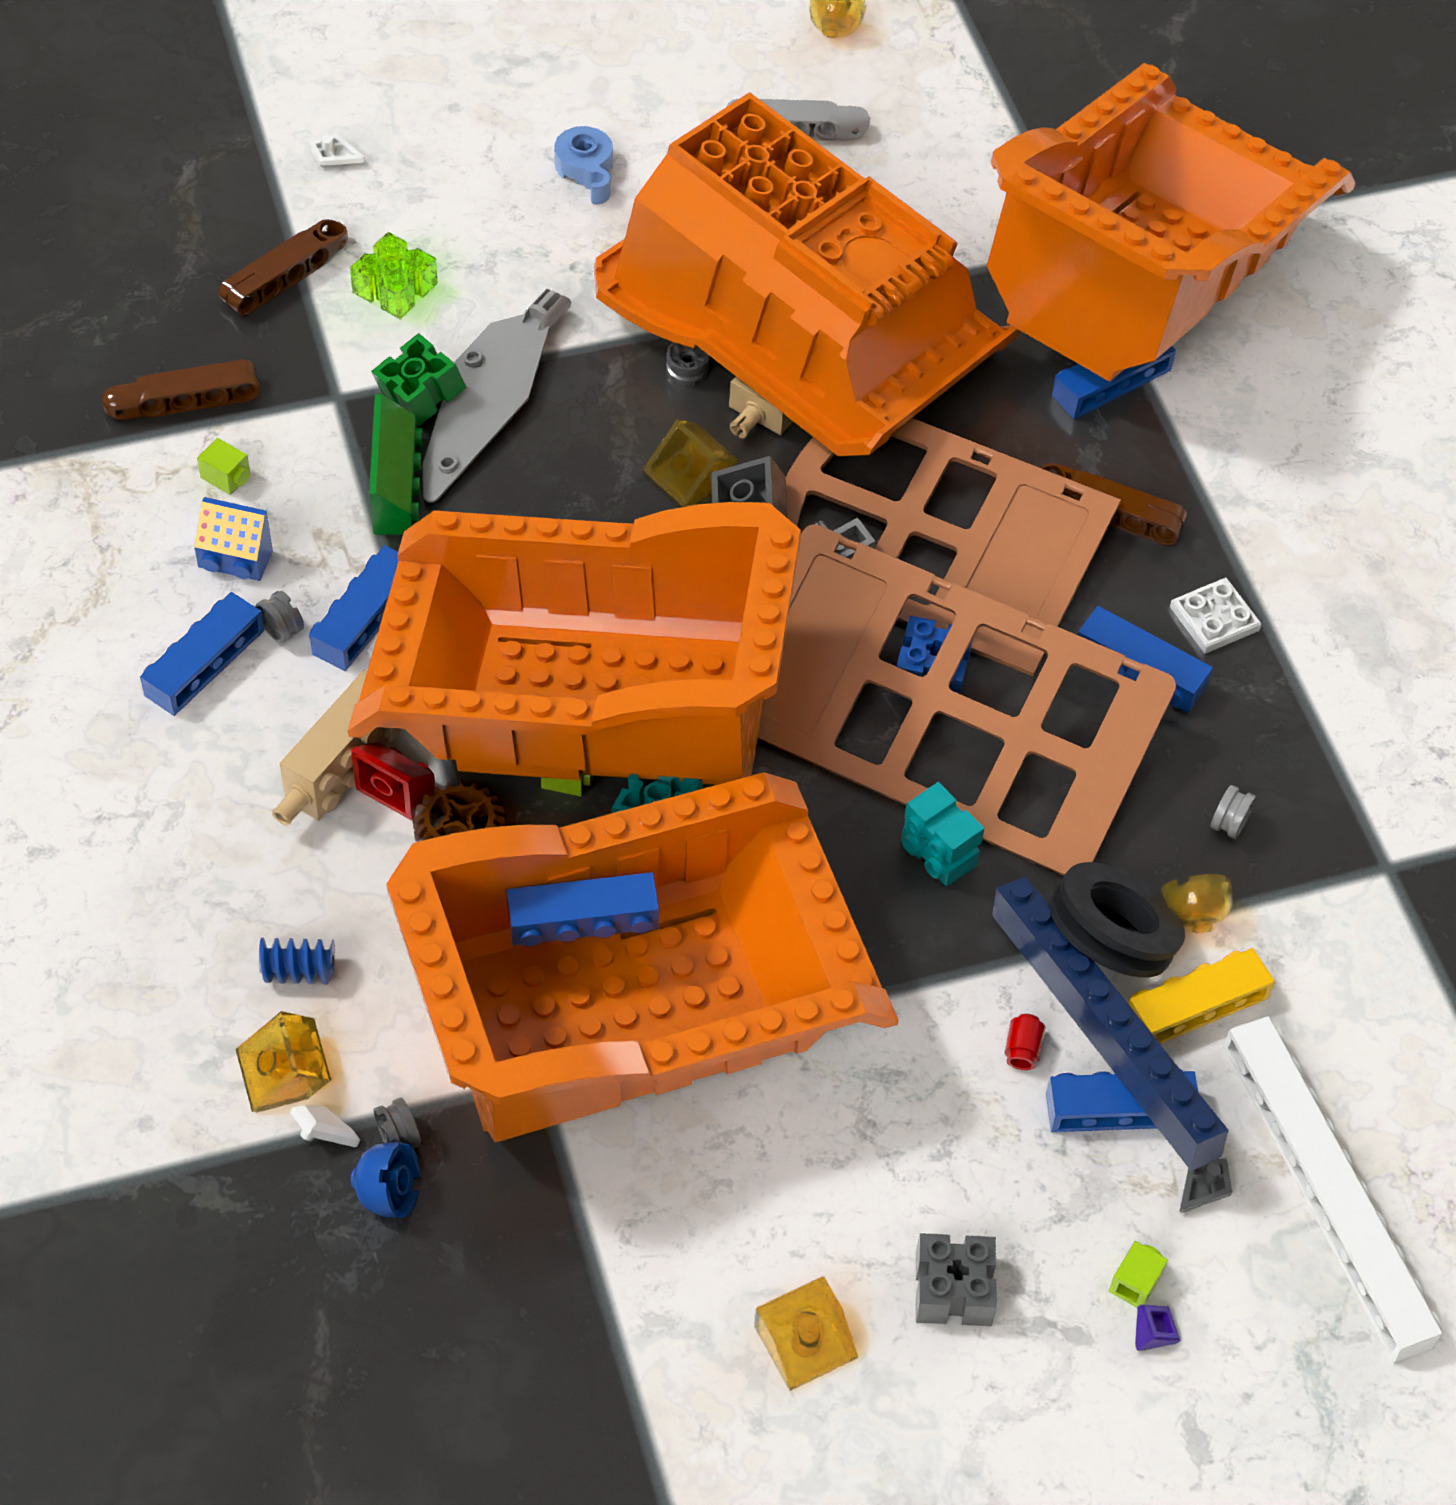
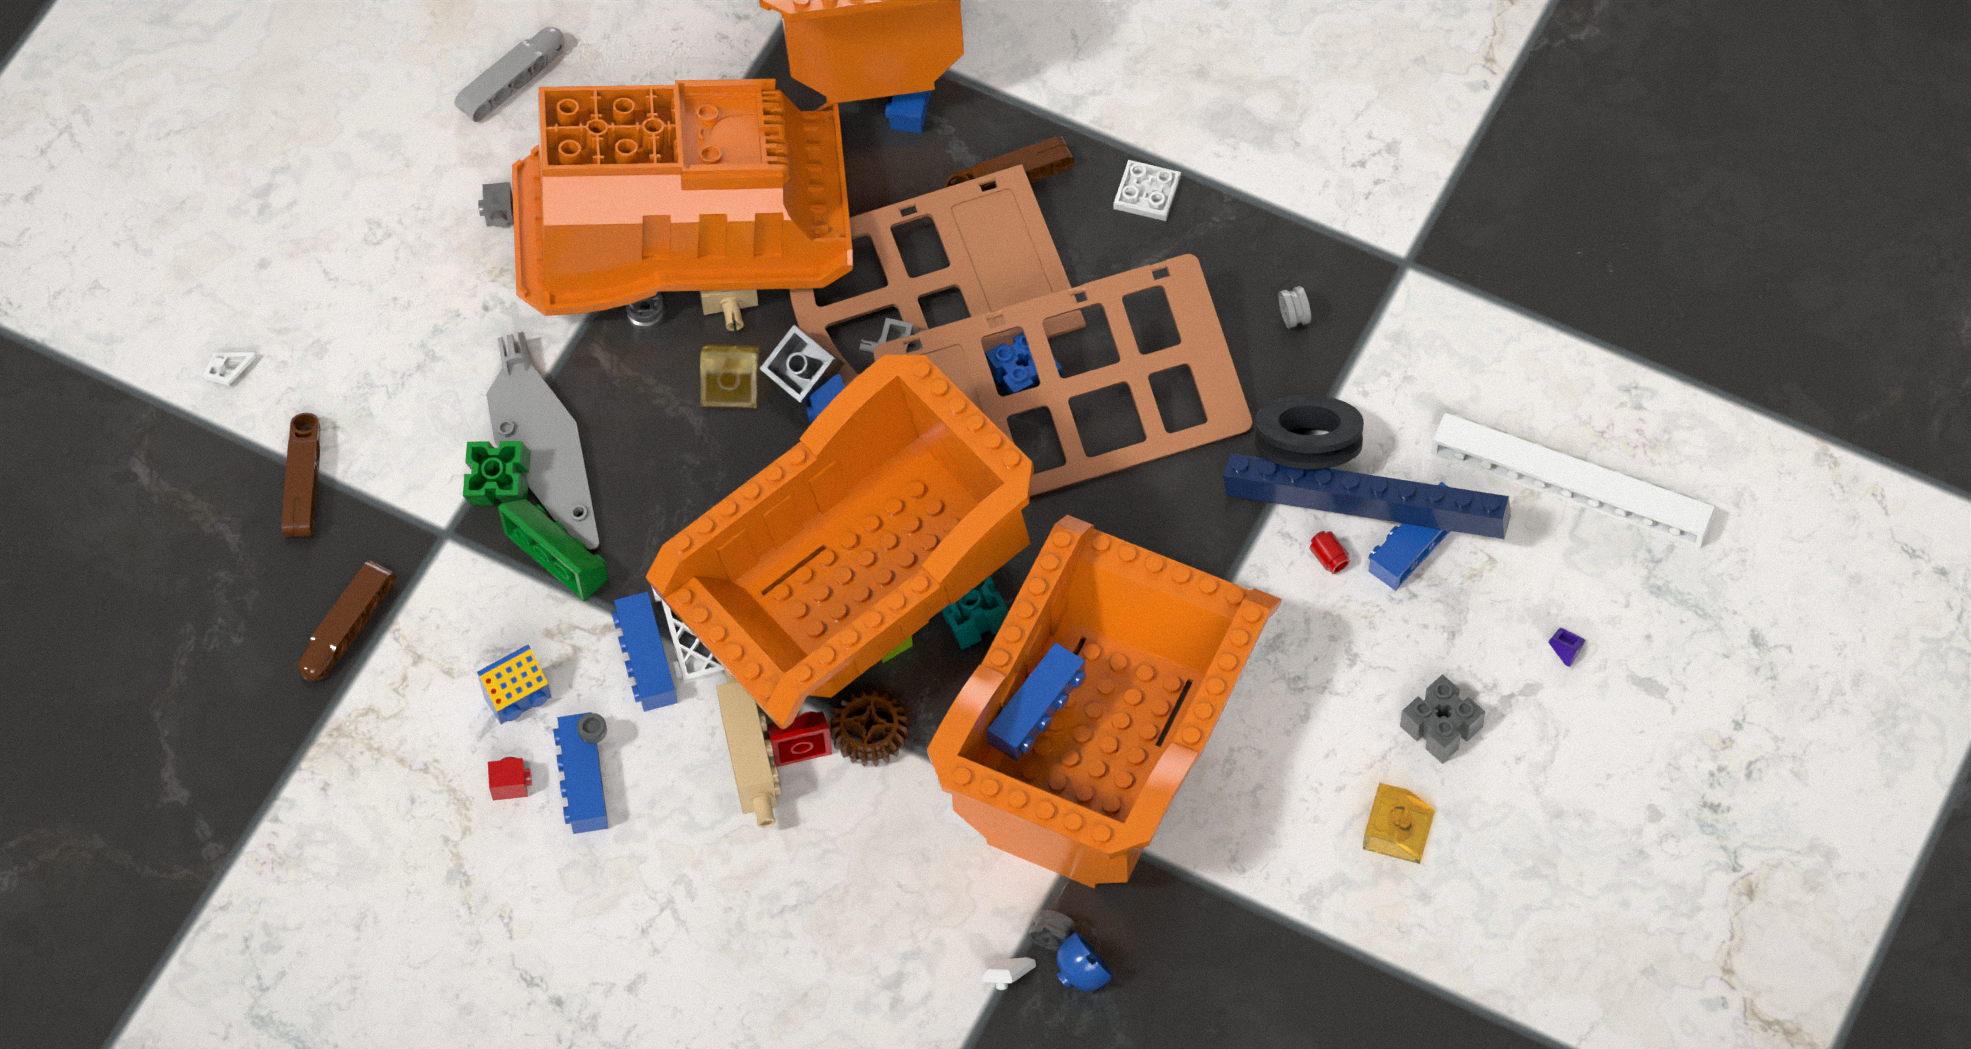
camera: 40 degrees left, 5 degrees up
(144, 606) = (508, 778): none -> red brick
(224, 466) = (440, 644): lime brick -> none
(242, 621) = (592, 728): none -> dark grey tile
(280, 617) = (604, 703): flat silver wheel -> none
(283, 1062) = (941, 960): clear yellow slope -> none
(296, 961) = (876, 895): blue piece -> none
(394, 275) = (385, 417): clear neon green brick -> none
(586, 156) = (403, 221): medium blue piece -> none
(941, 834) = (1154, 472): teal brick -> none
(1136, 644) = (1135, 252): blue brick -> none
(1138, 1274) = (1530, 624): lime brick -> none
(1200, 901) = (1337, 379): clear yellow cylinder -> none
(1203, 995) = (1394, 430): yellow brick -> none
(1206, 1185) = (1510, 546): dark grey piece -> none

